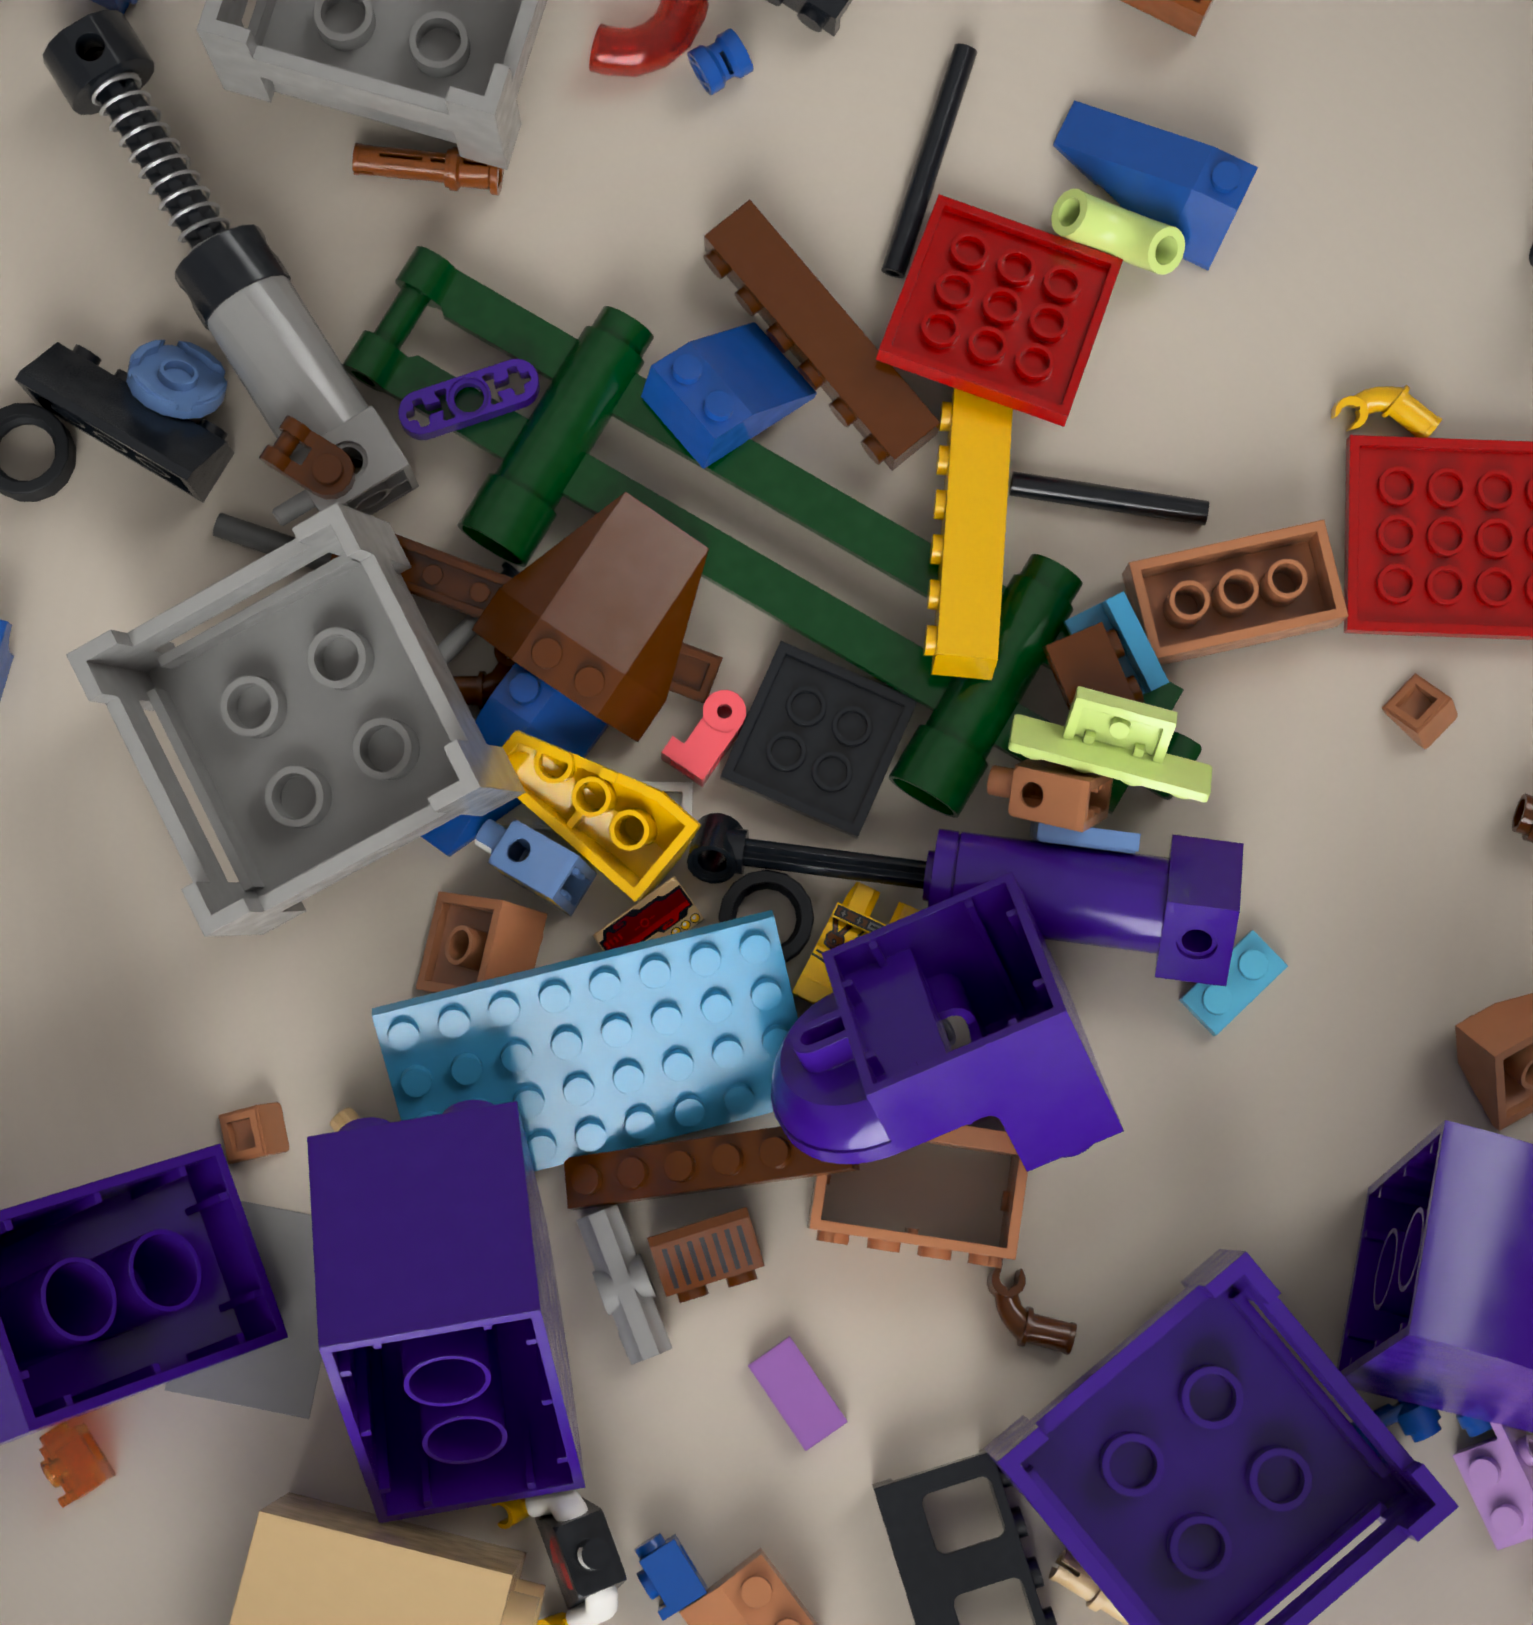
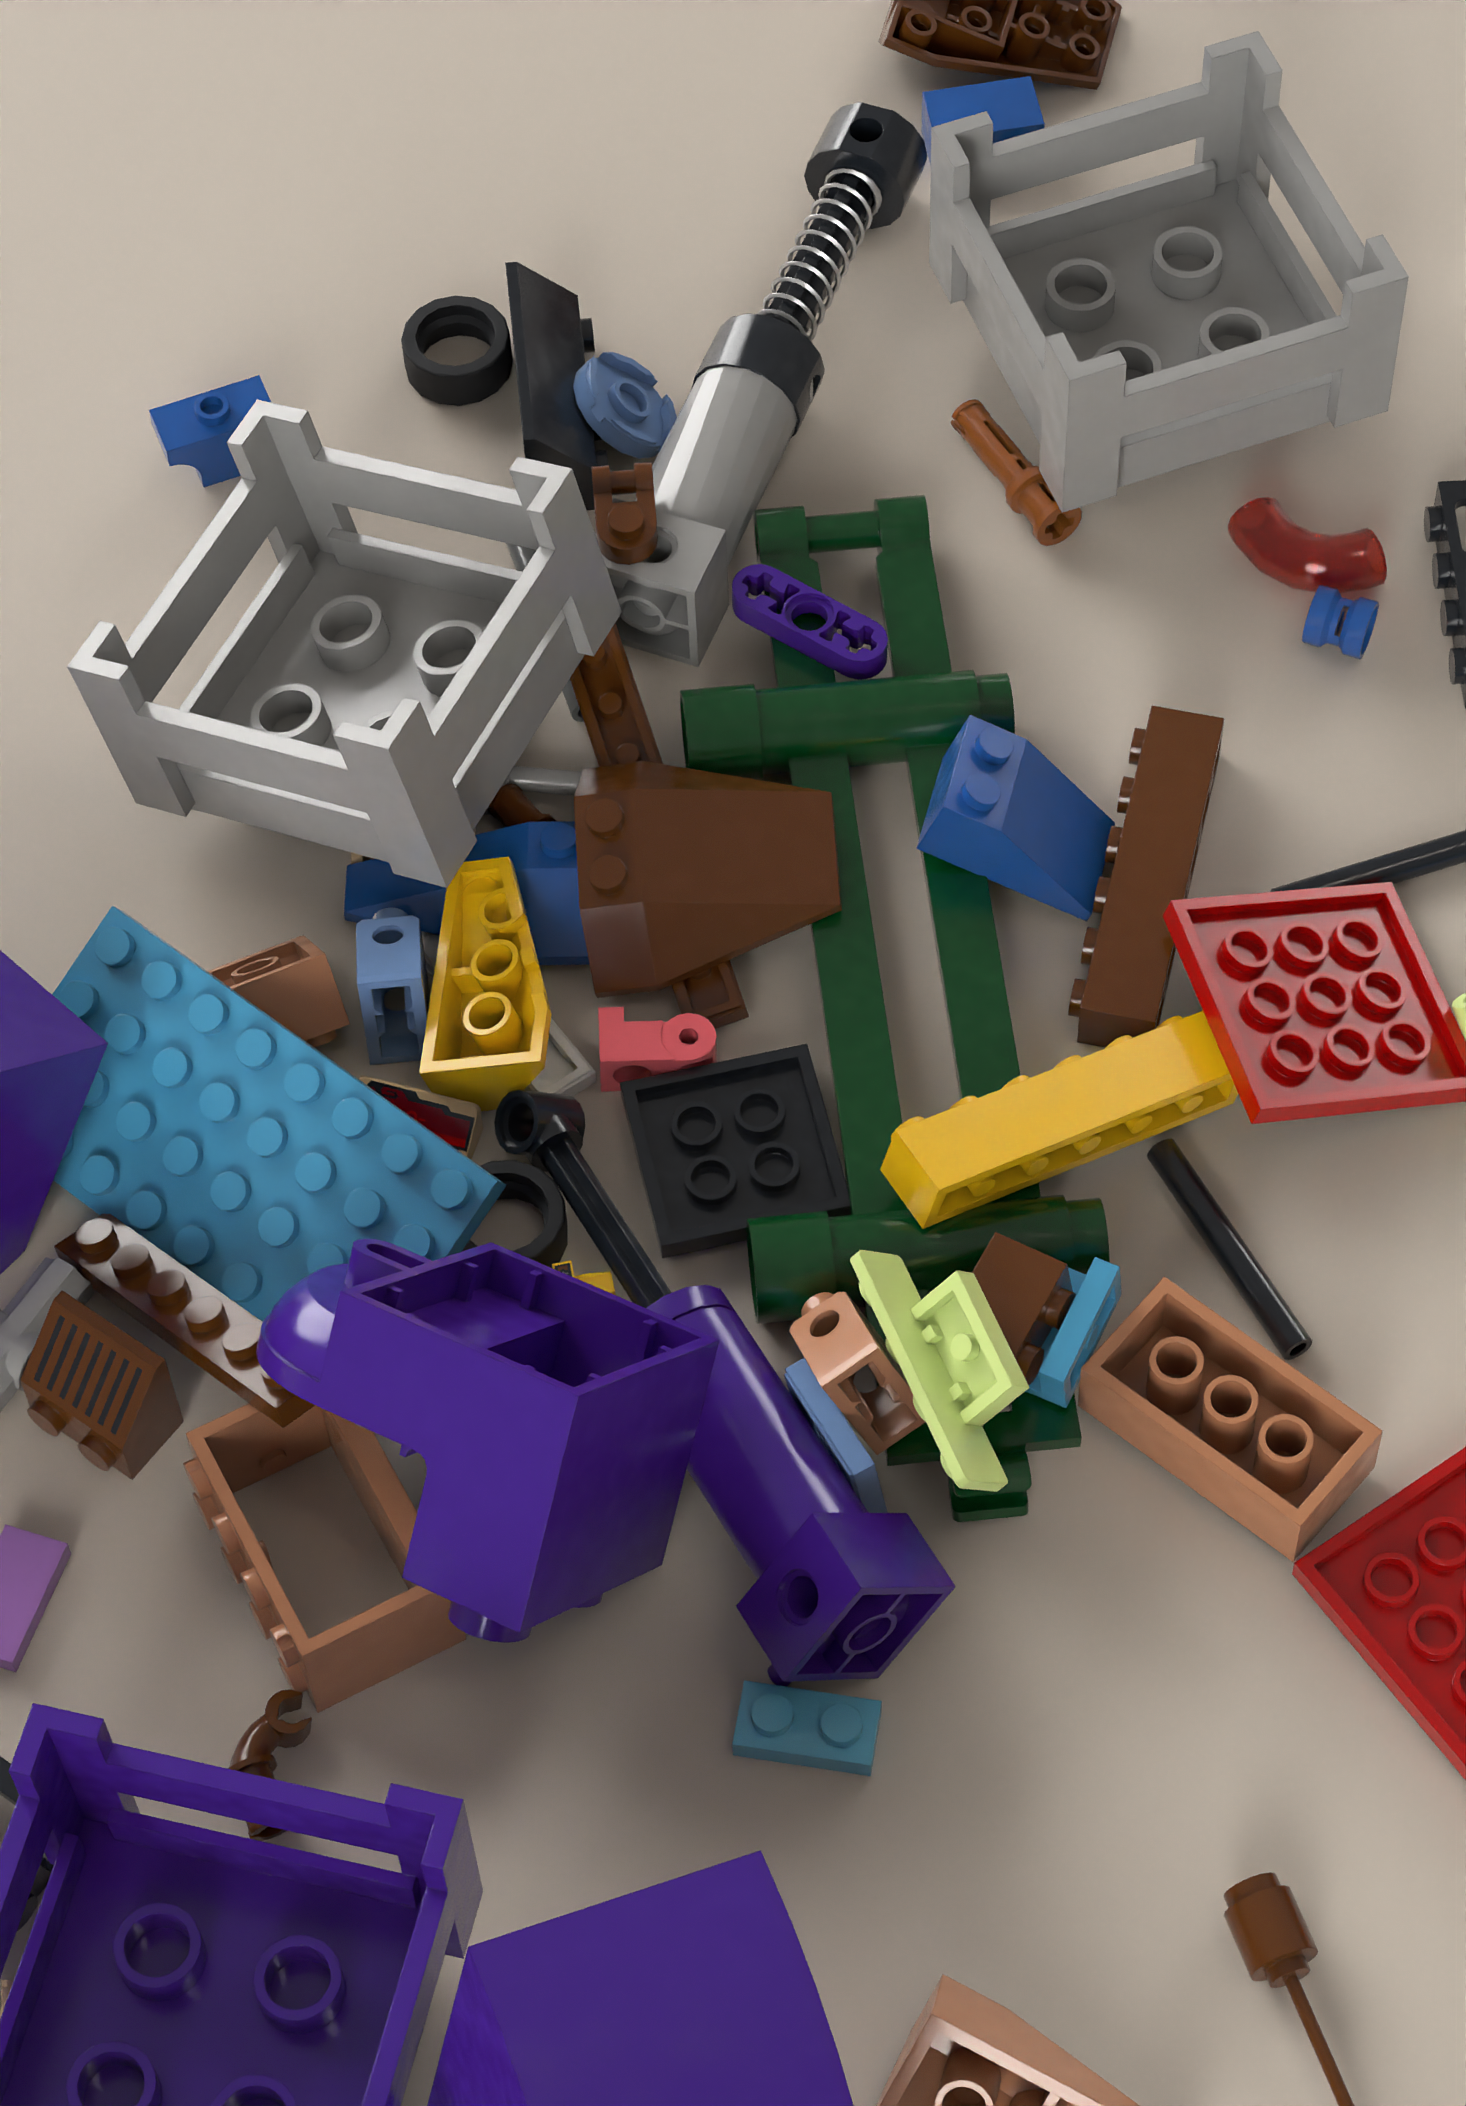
camera: 60 degrees right, 25 degrees down
(1421, 711) = (1277, 1716): nougat slope -> none

